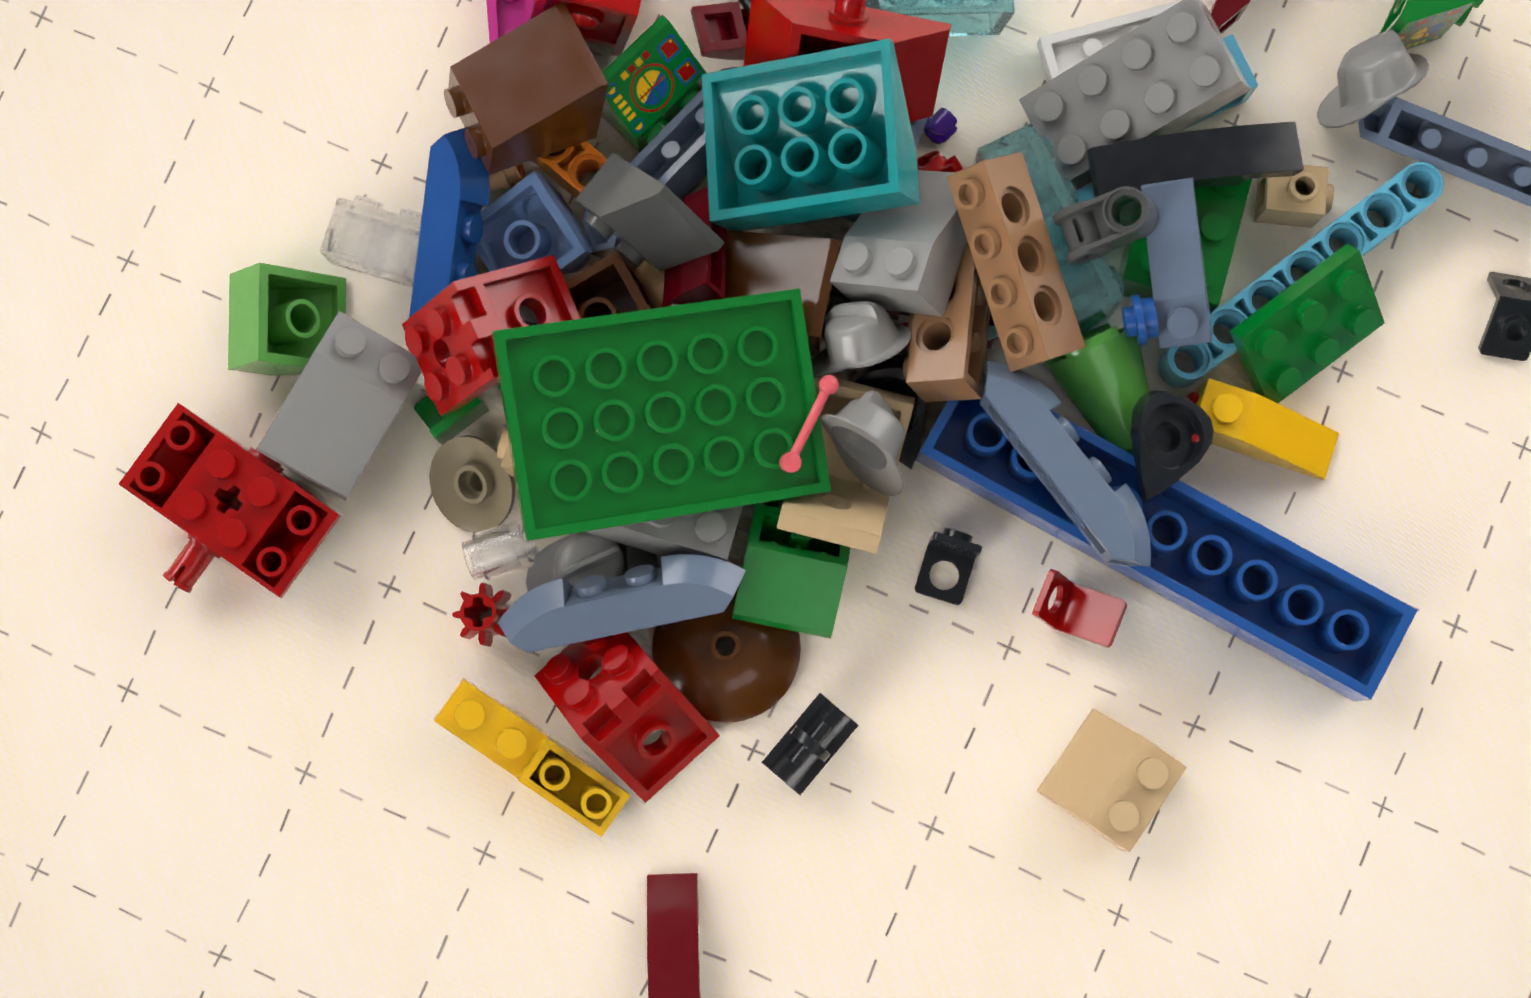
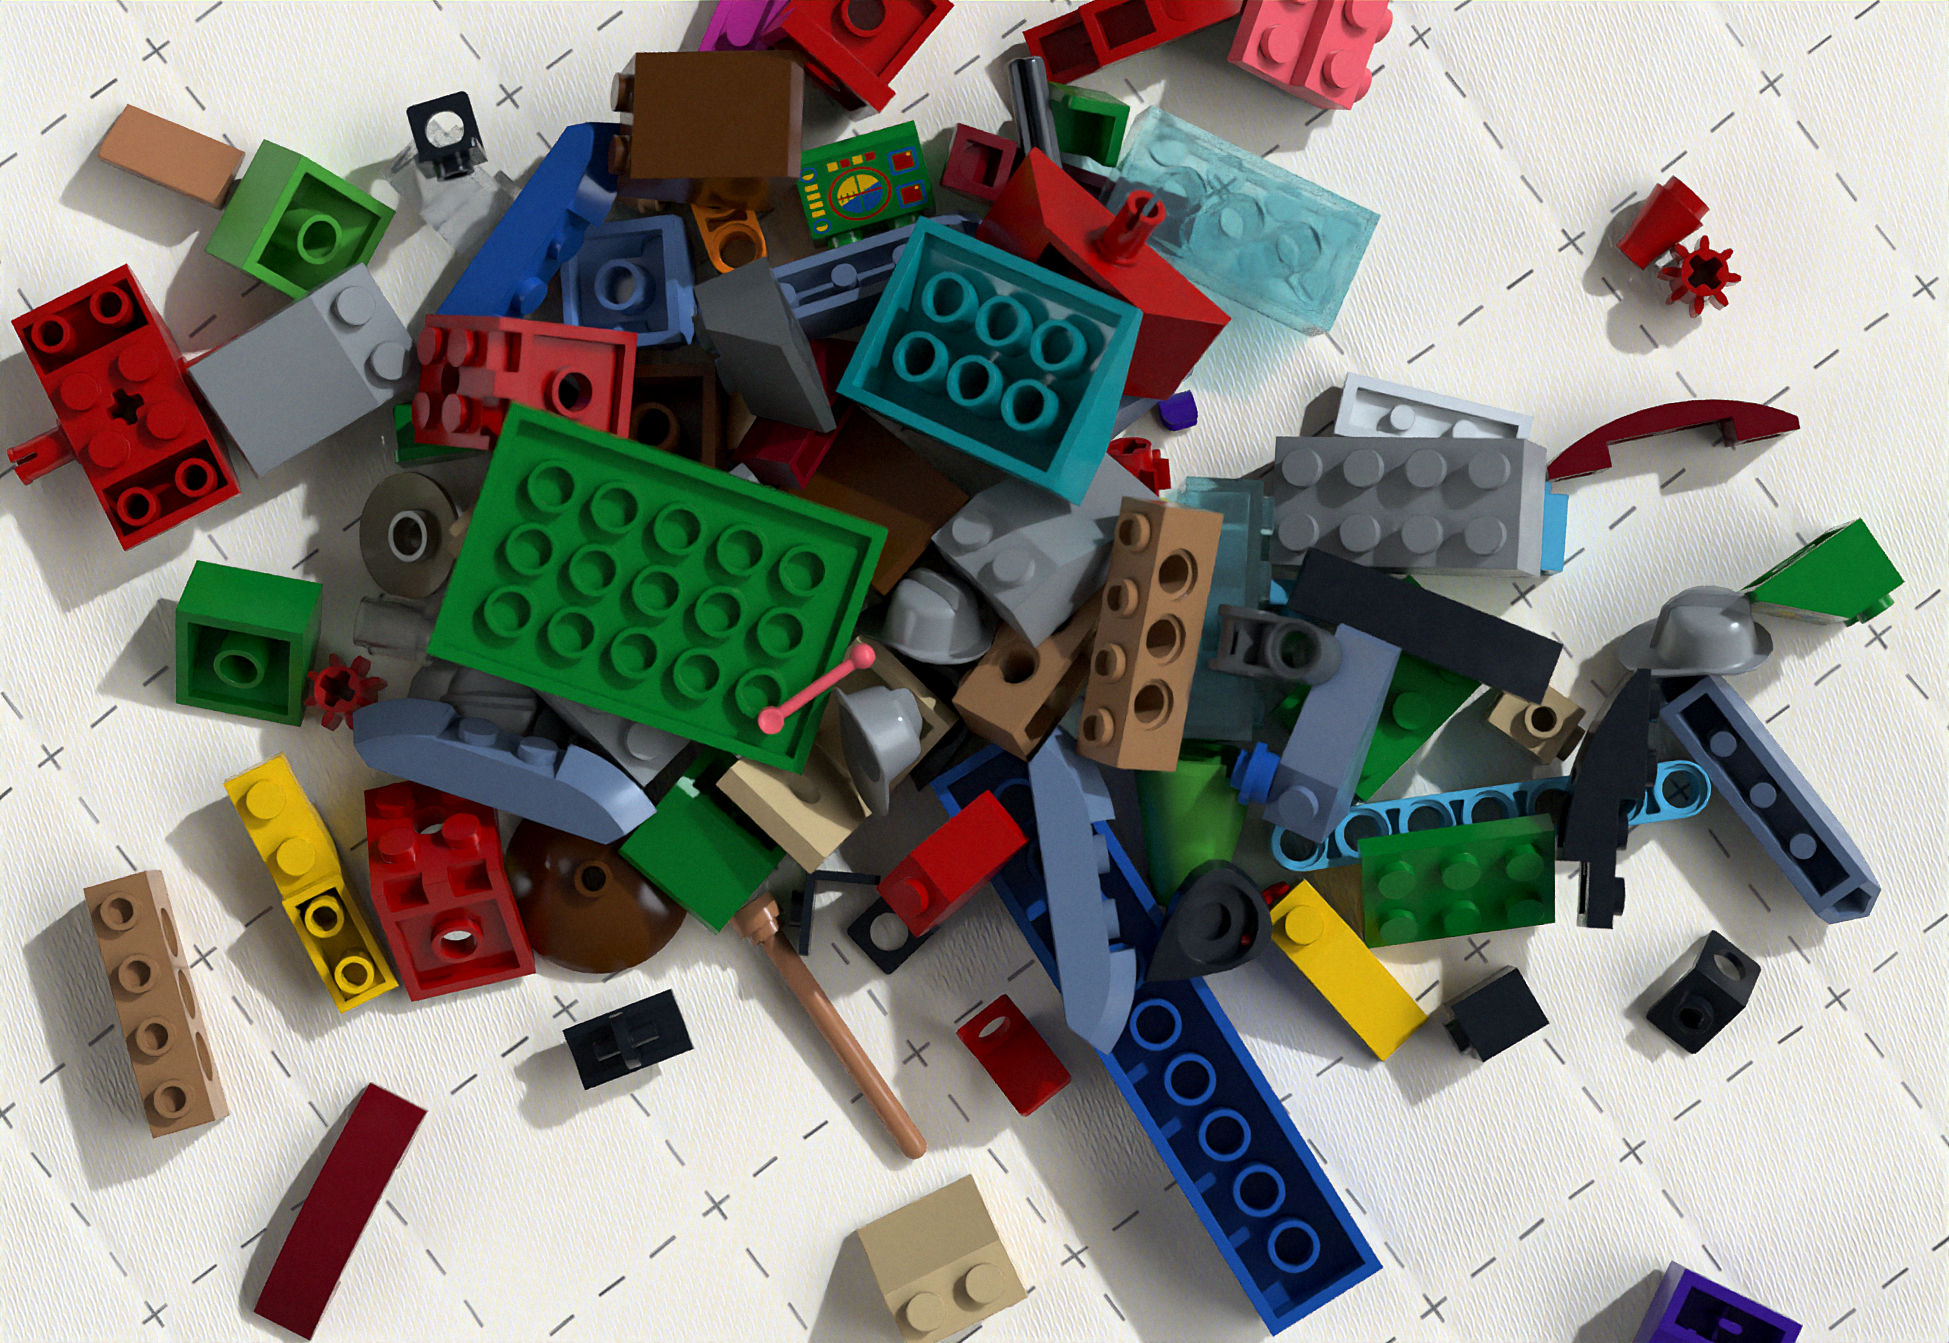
camera: 20 degrees right, 5 degrees up
(174, 323) = (172, 156): none -> nougat slope
(362, 210) = (452, 160): none -> black bracket
(398, 618) = (247, 642): none -> green slope
(468, 900) = (156, 1002): none -> medium nougat brick
(857, 617) = (763, 925): none -> nougat piece
(877, 584) = (803, 902): none -> black bracket
(969, 494) = (952, 864): none -> red slope
(1368, 193) = (1607, 767): none -> black slope
(1383, 404) = (1493, 1015): none -> black brick

